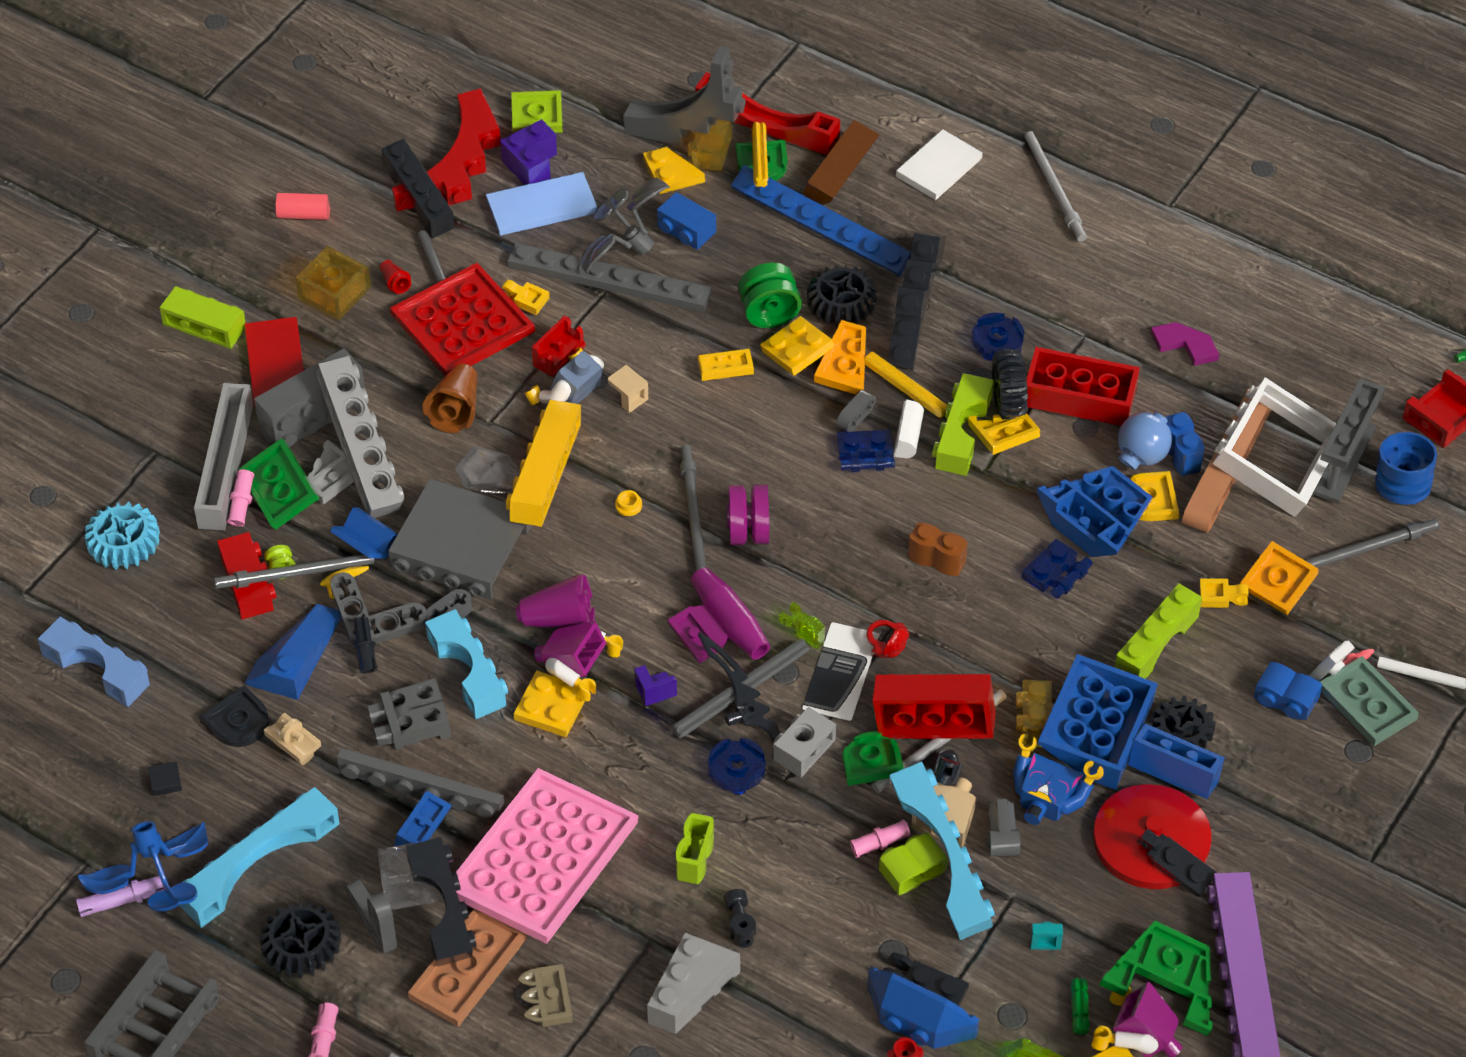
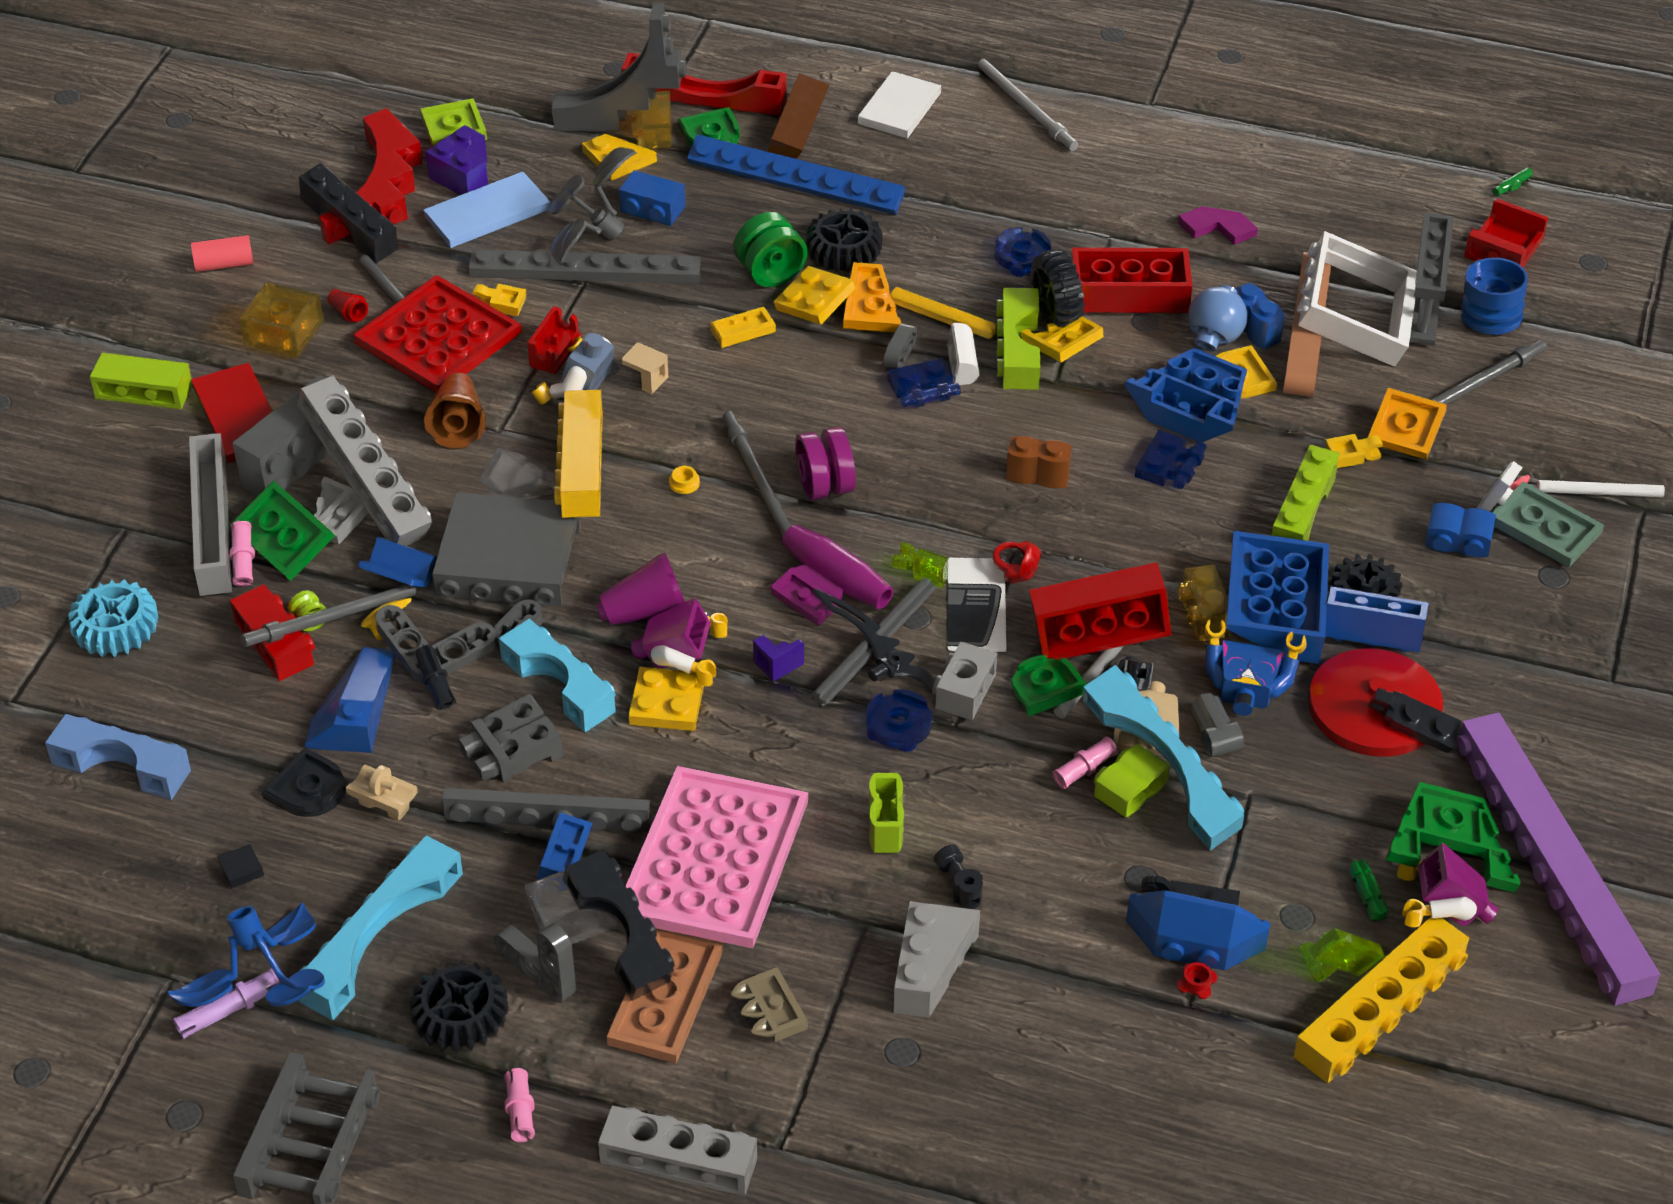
camera: 15 degrees left, 5 degrees down
(759, 148) = (711, 121): yellow axle -> none
(913, 297) = (927, 226): black arch -> none
(1046, 936) = (1306, 824): teal plate -> none

